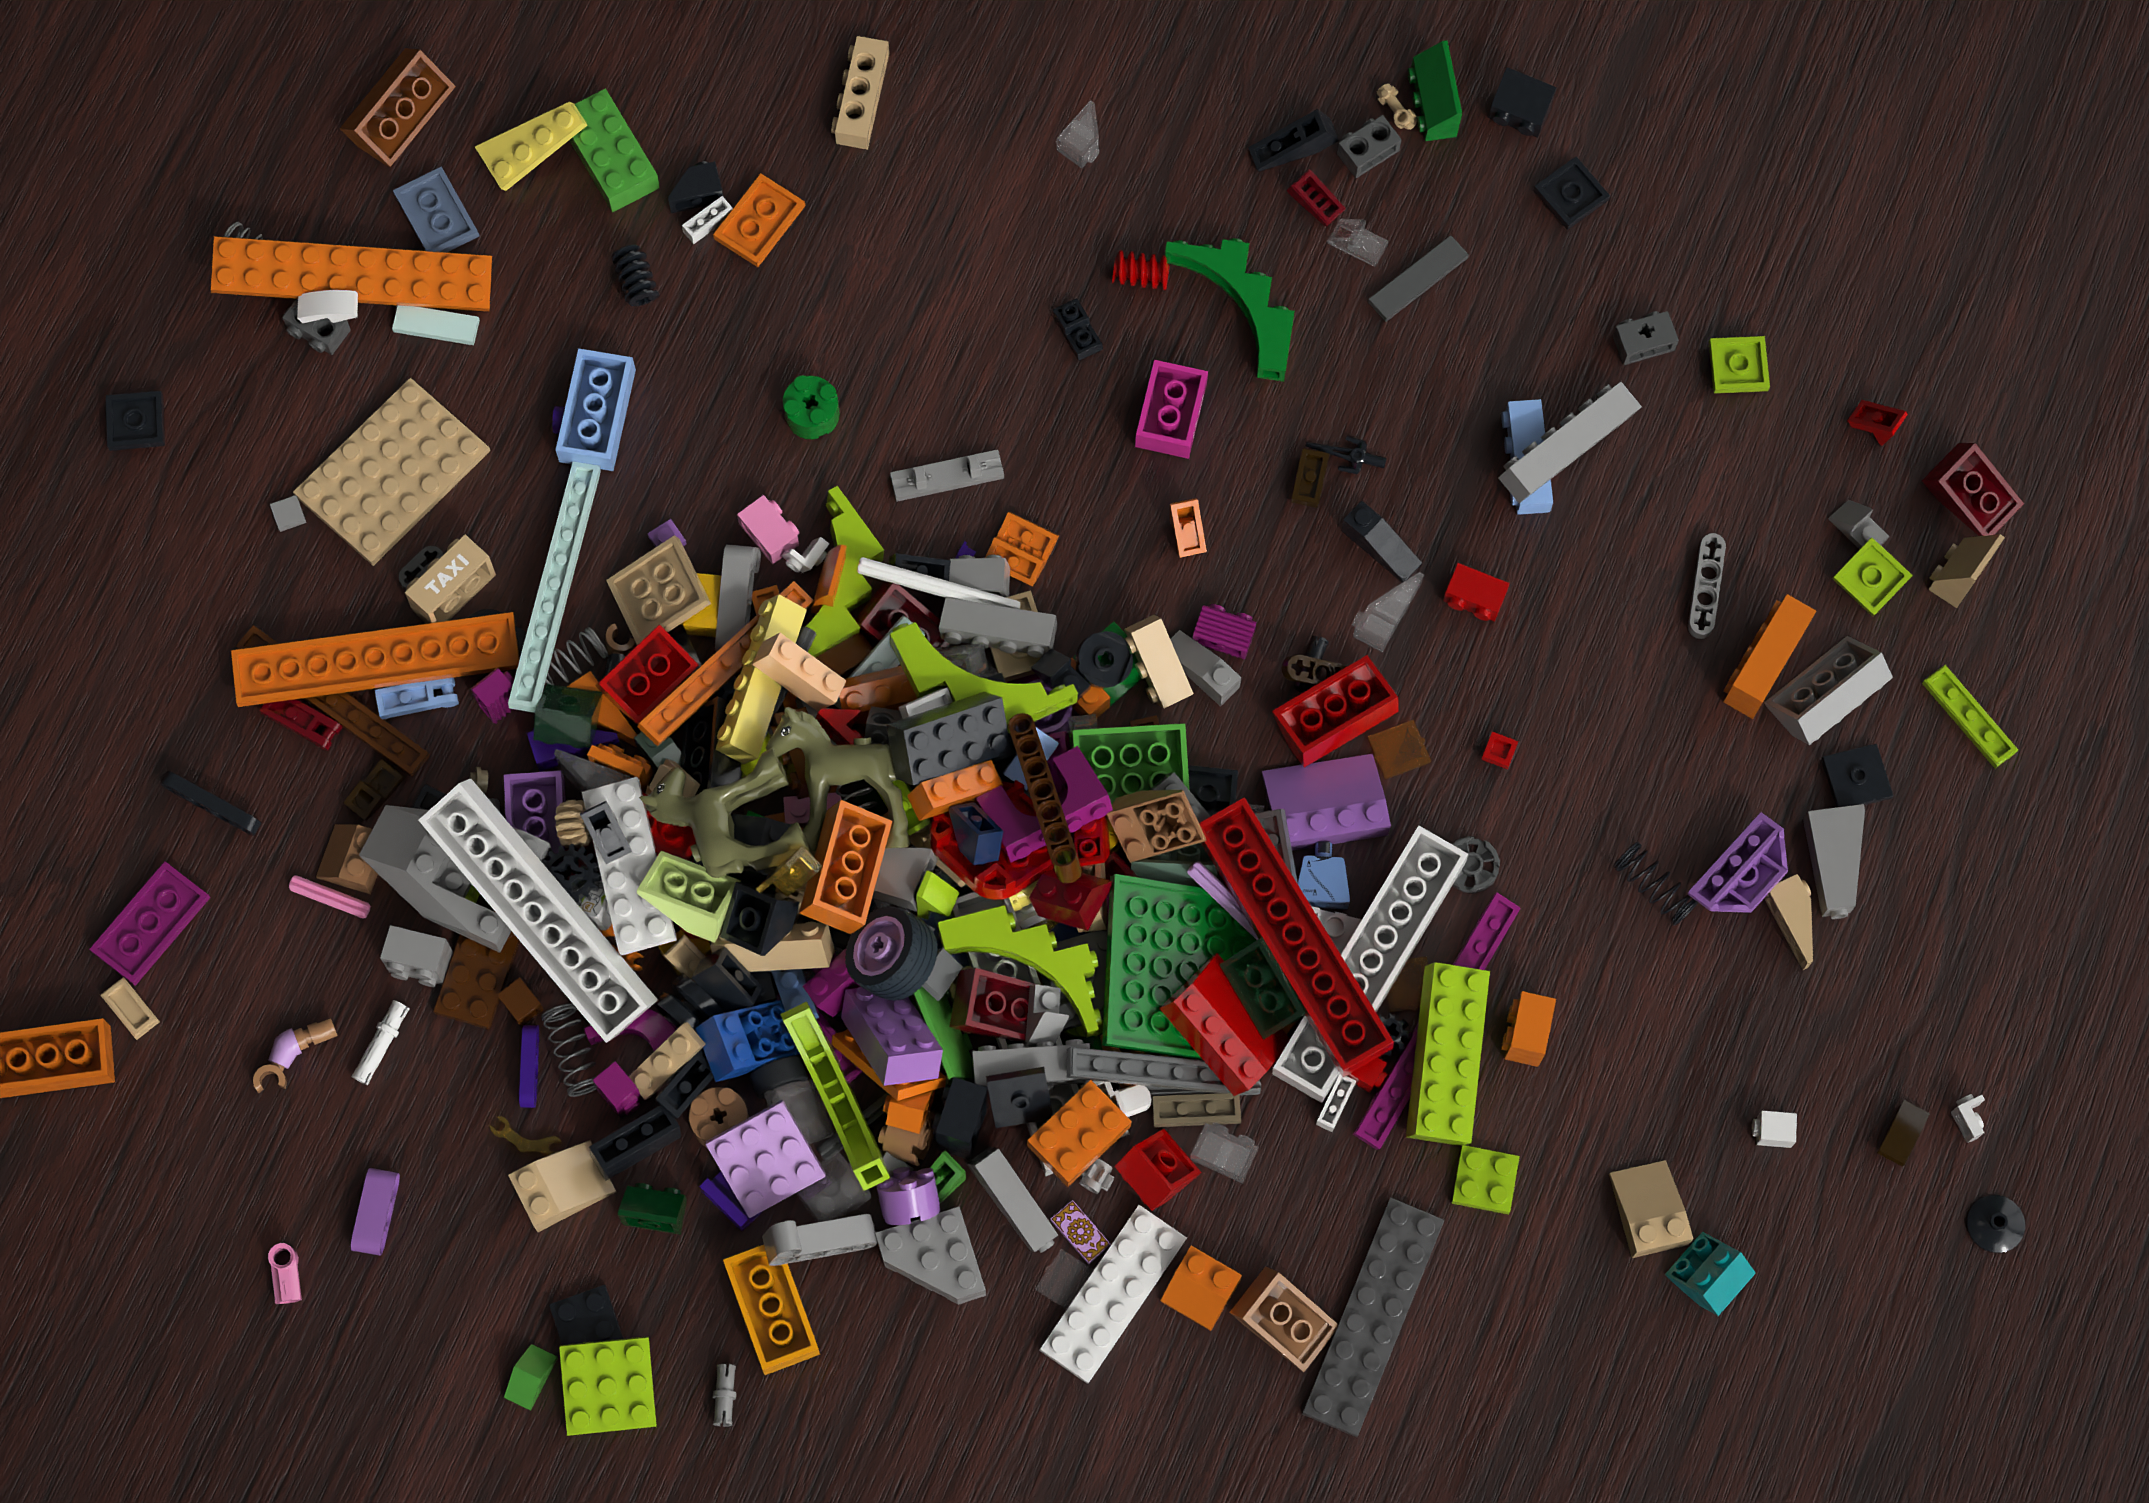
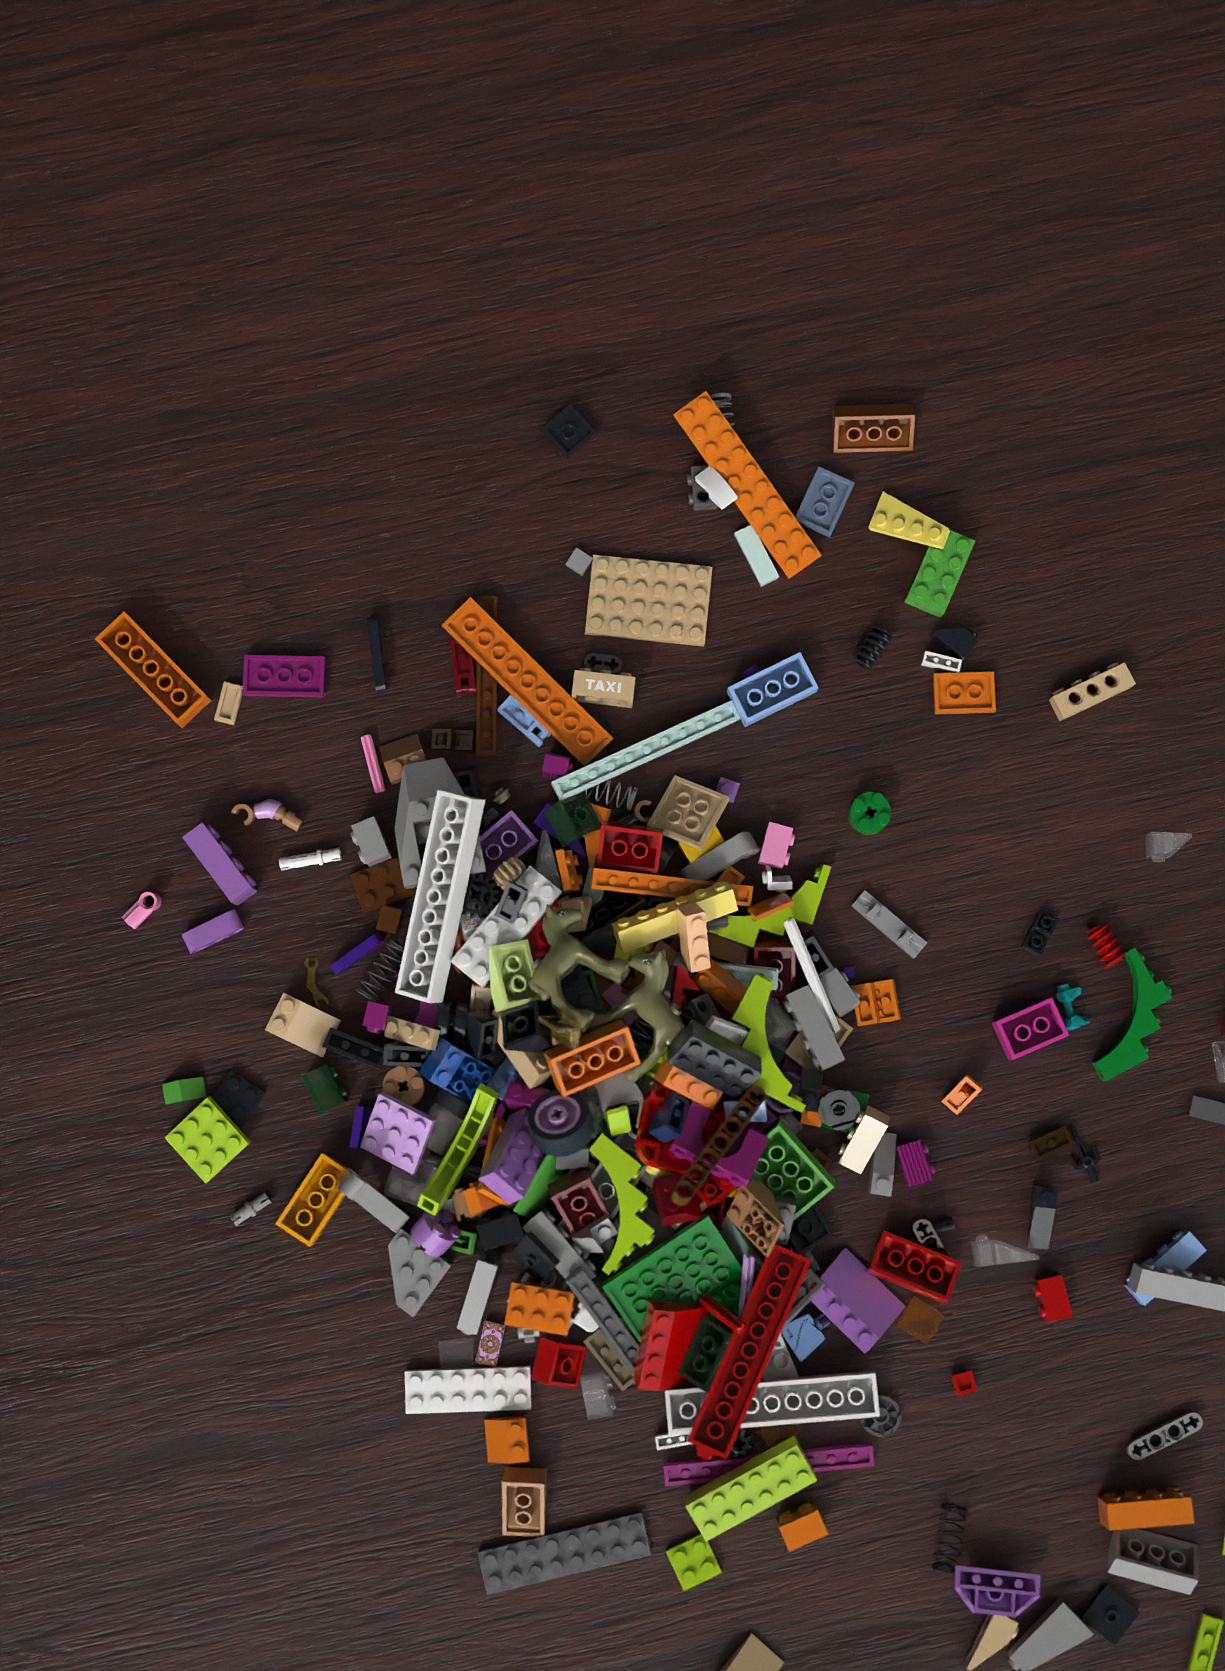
camera: 55 degrees right, 10 degrees up
(305, 1142) = (219, 863): none -> medium lavender brick
(1164, 349) = (1066, 995): none -> teal piece
(1233, 936) = (722, 1314): none -> red axle

